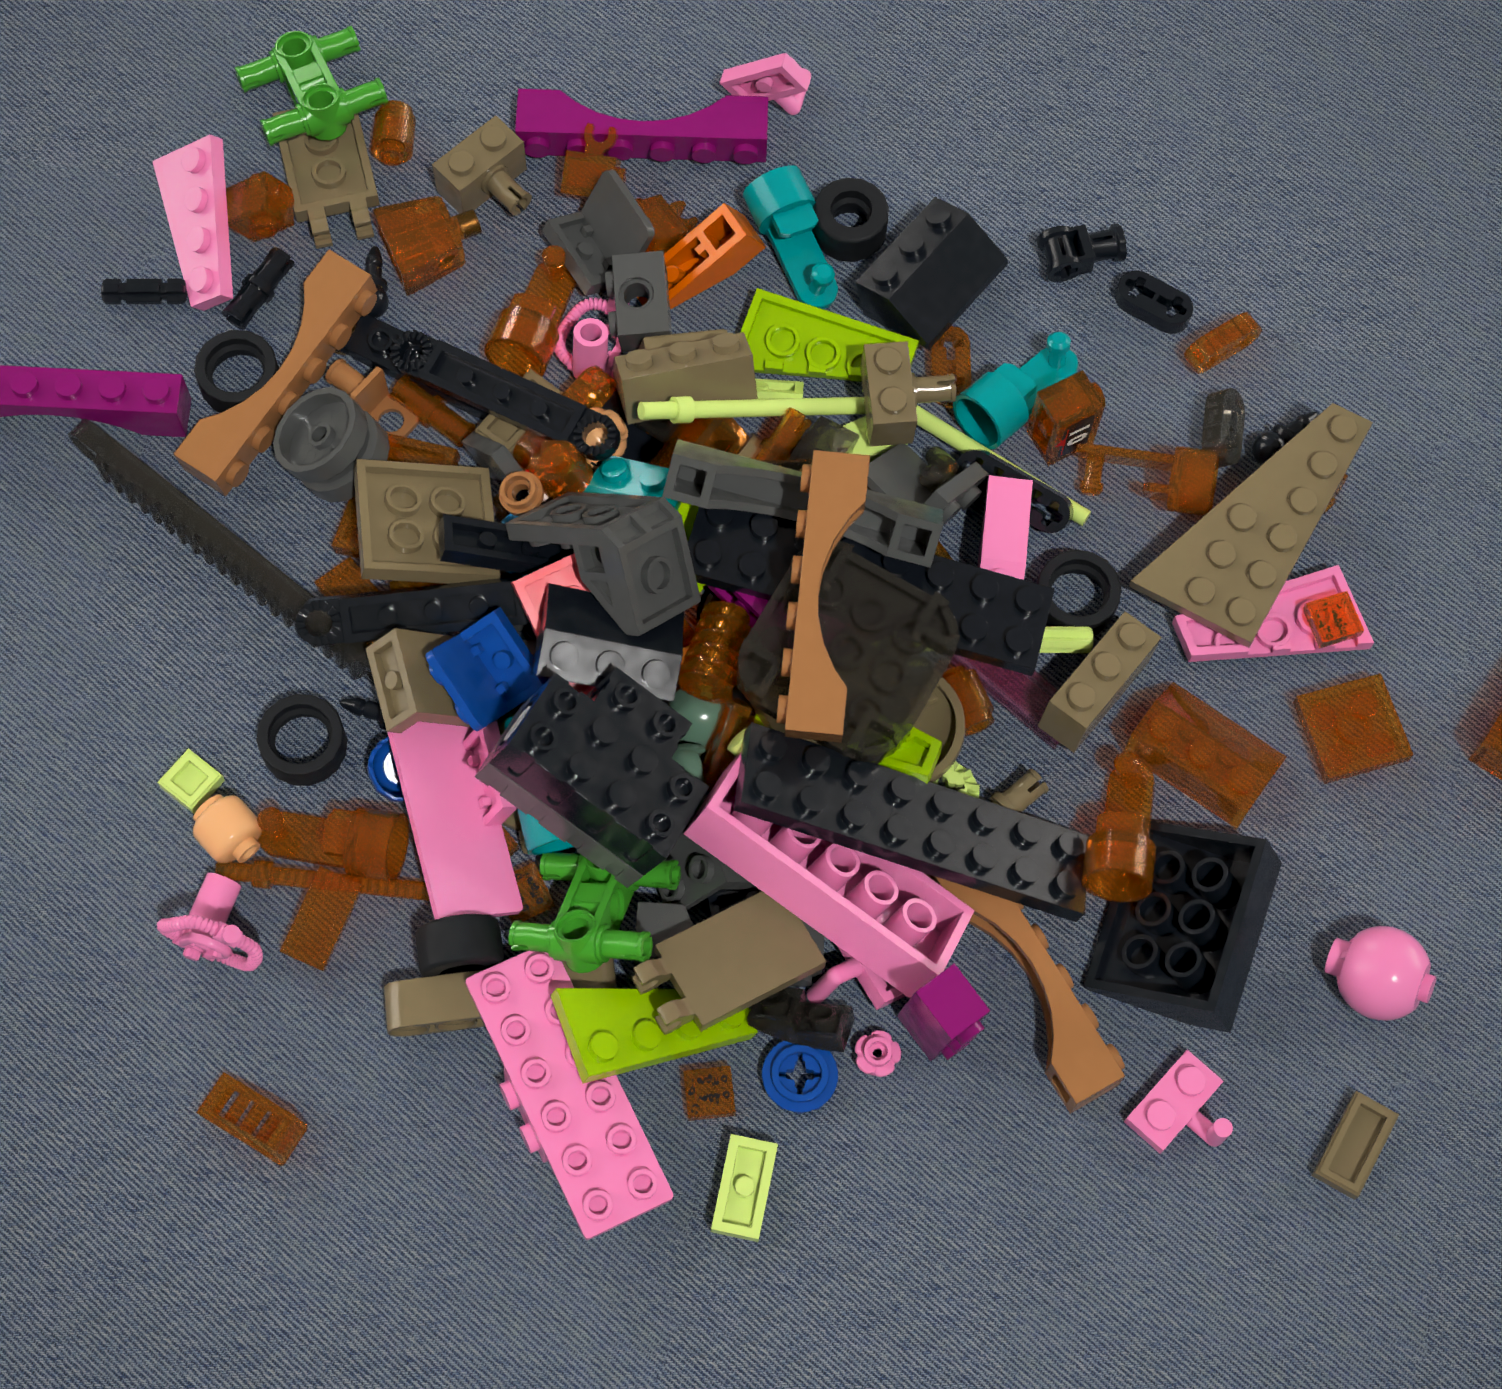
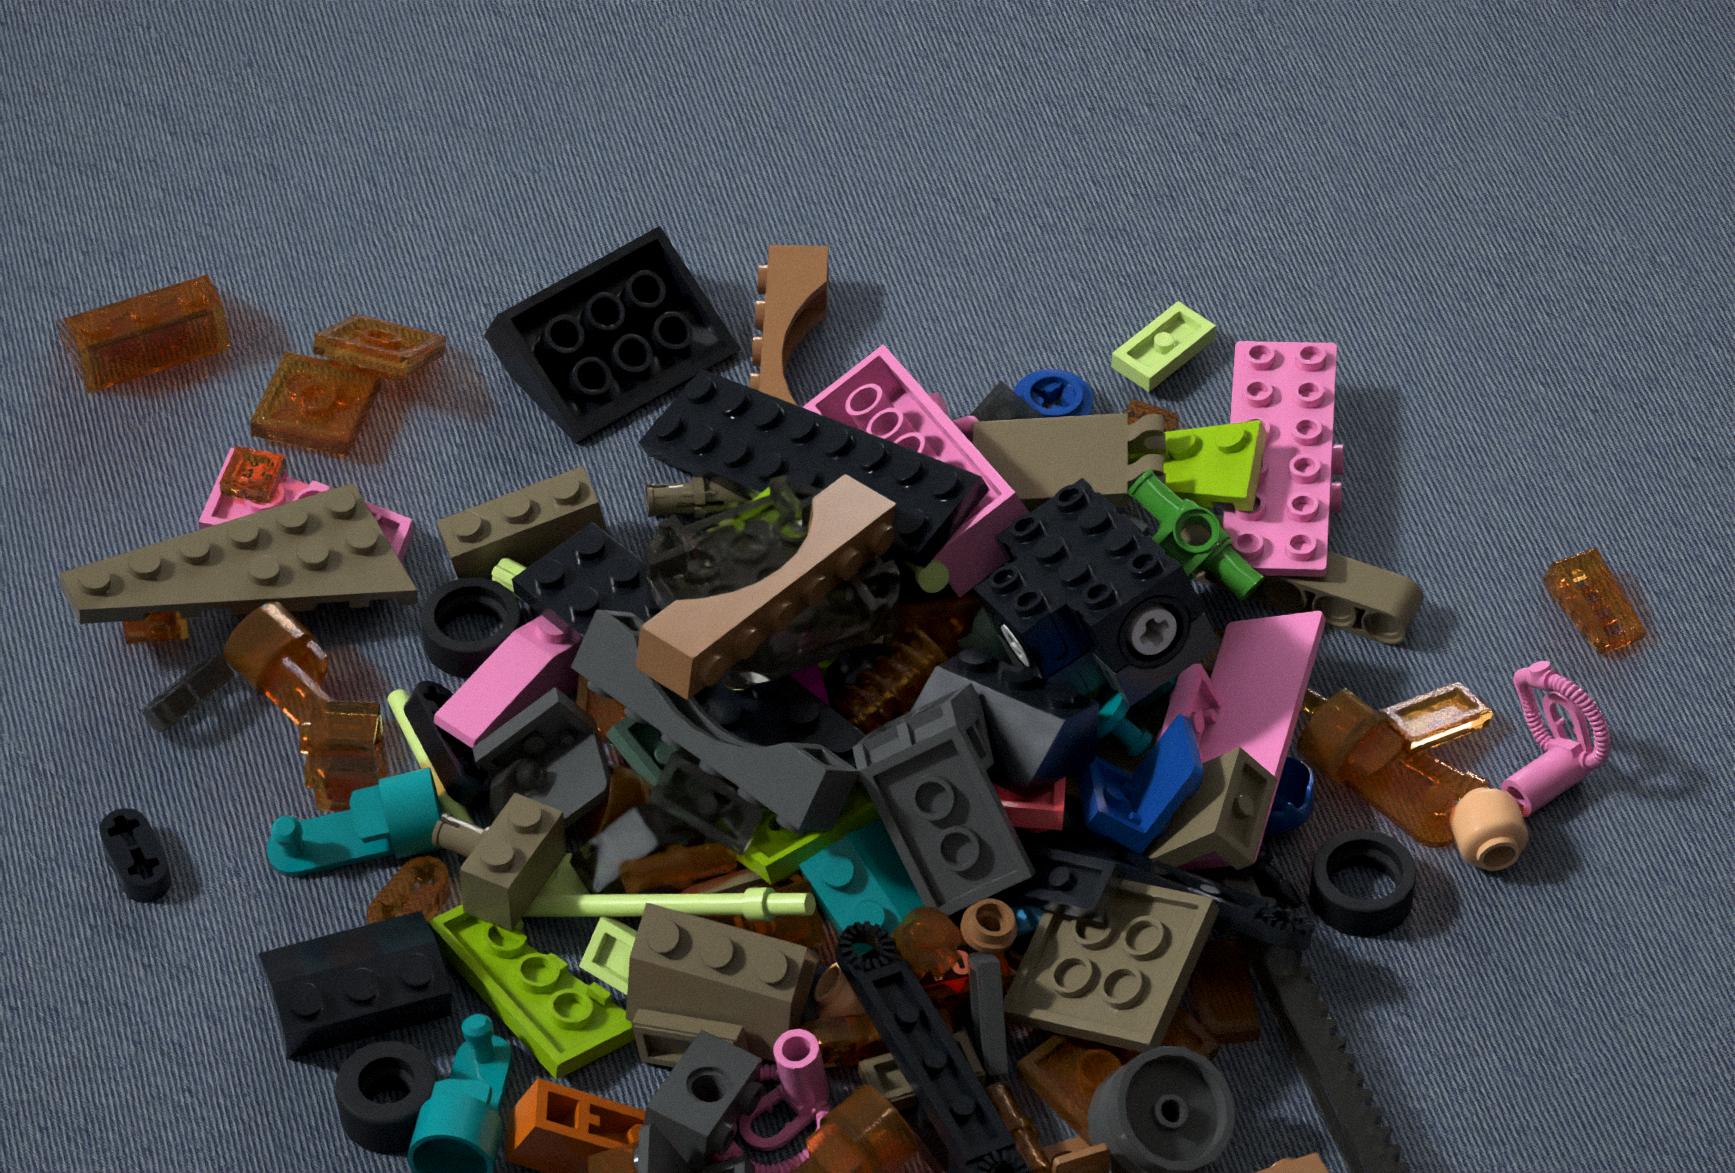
camera: 145 degrees left, 20 degrees down
(191, 781) = (1502, 912): yellowish green tile -> none
(459, 944) = (1319, 588): black tyre -> none
(868, 1062) = (969, 385): bright pink plate -> none
(944, 1014) = (901, 311): magenta brick -> none
(1074, 250) = (166, 937): black connector -> none
(1119, 853) = (627, 393): clear orange piece -> none
(1176, 1104) = (729, 237): bright pink plate -> none
(1204, 754) = (466, 439): clear orange slope -> none
(1222, 342) = (107, 771): clear orange beam -> none
(1271, 441) = (155, 659): black bar -> none
(1346, 796) = (379, 345): none -> clear orange plate
(1355, 1145) = (605, 147): dark tan tile -> none
(1381, 972) = (475, 219): bright pink brick -> none

